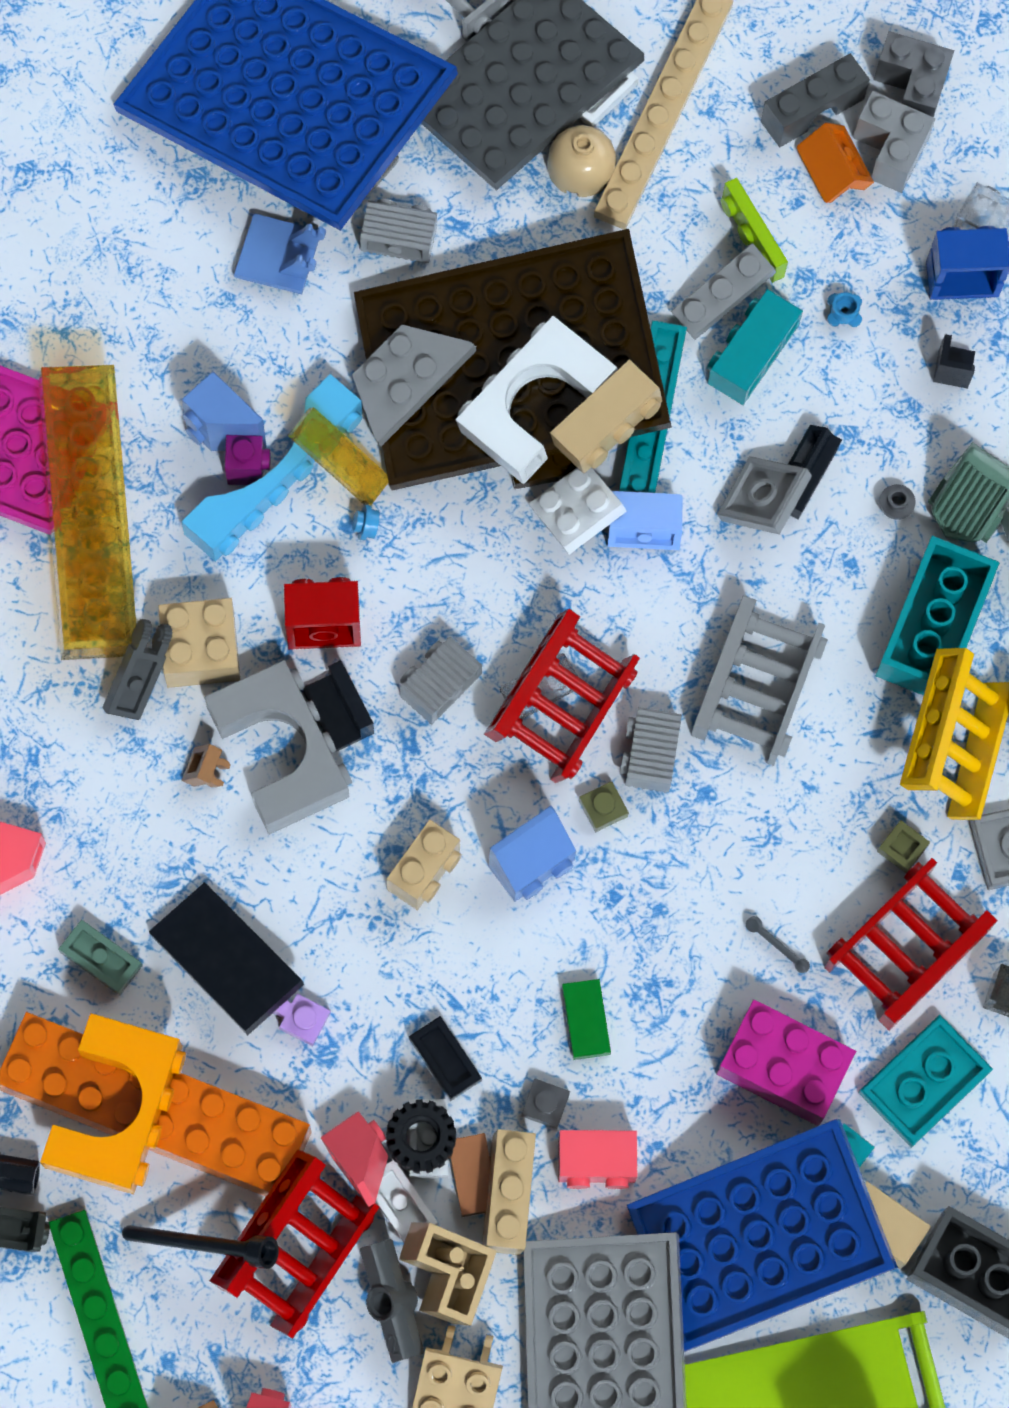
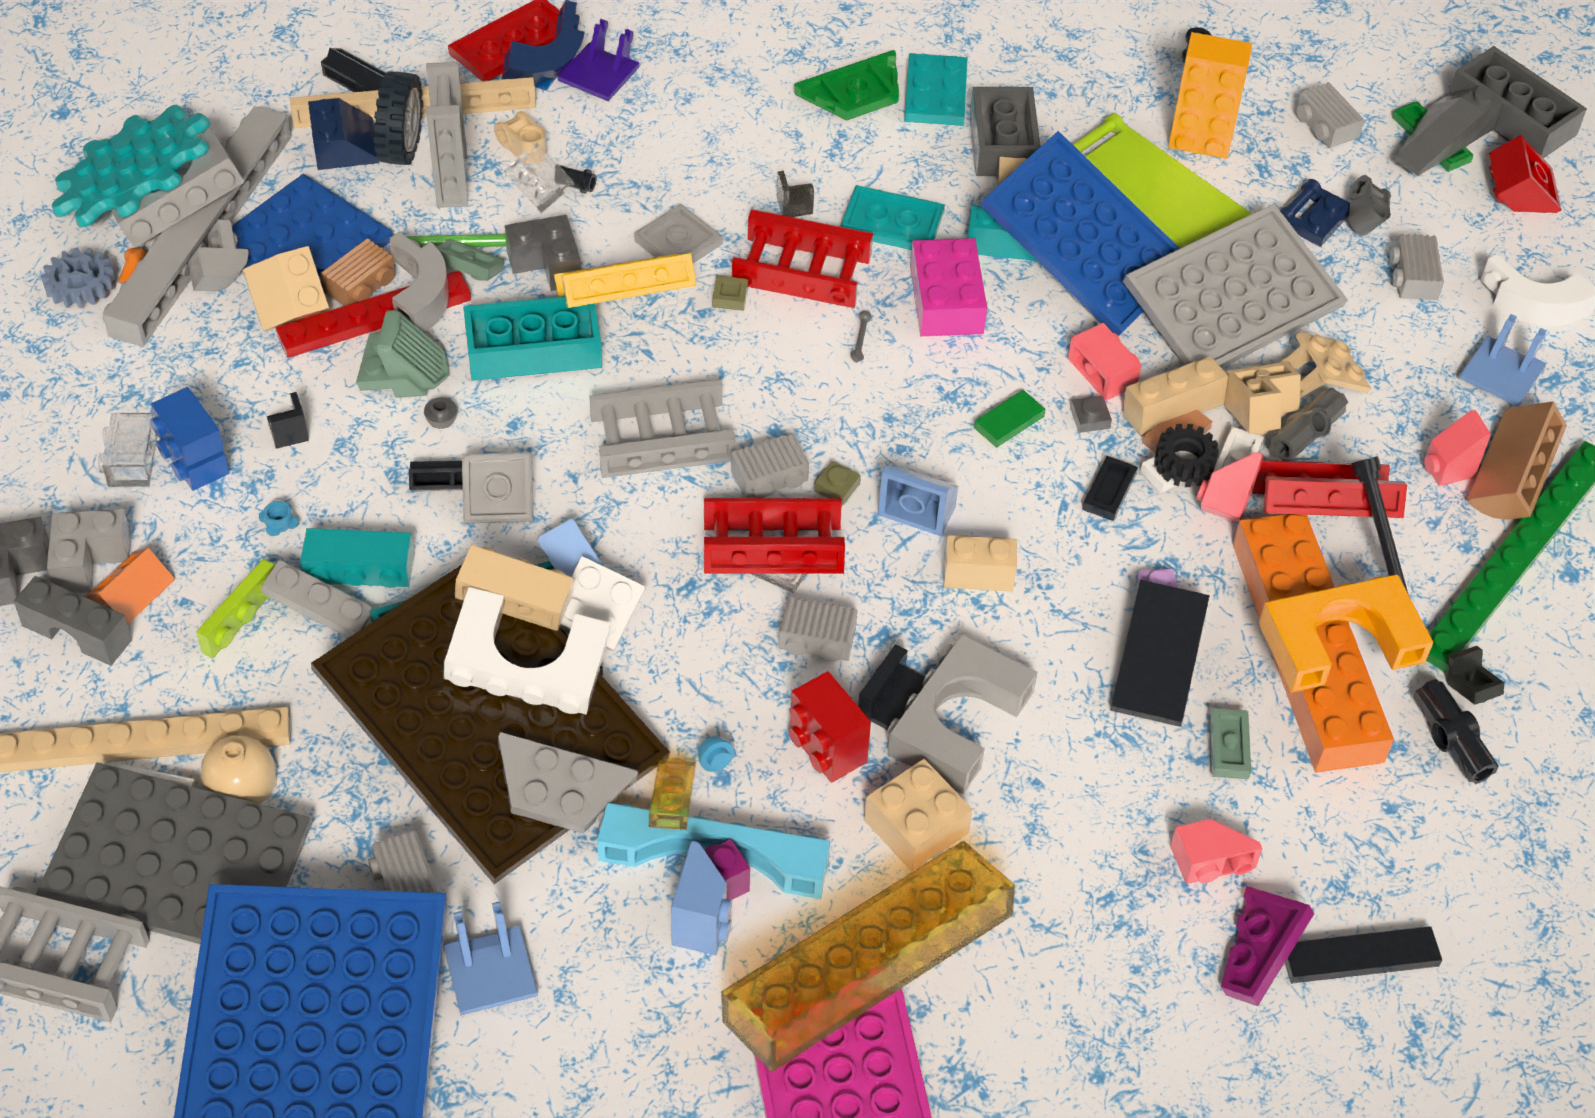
camera: 120 degrees left, 20 degrees down
(138, 671) = (979, 831): dark grey hinge -> none
(202, 766) = (1020, 756): medium nougat tile -> none

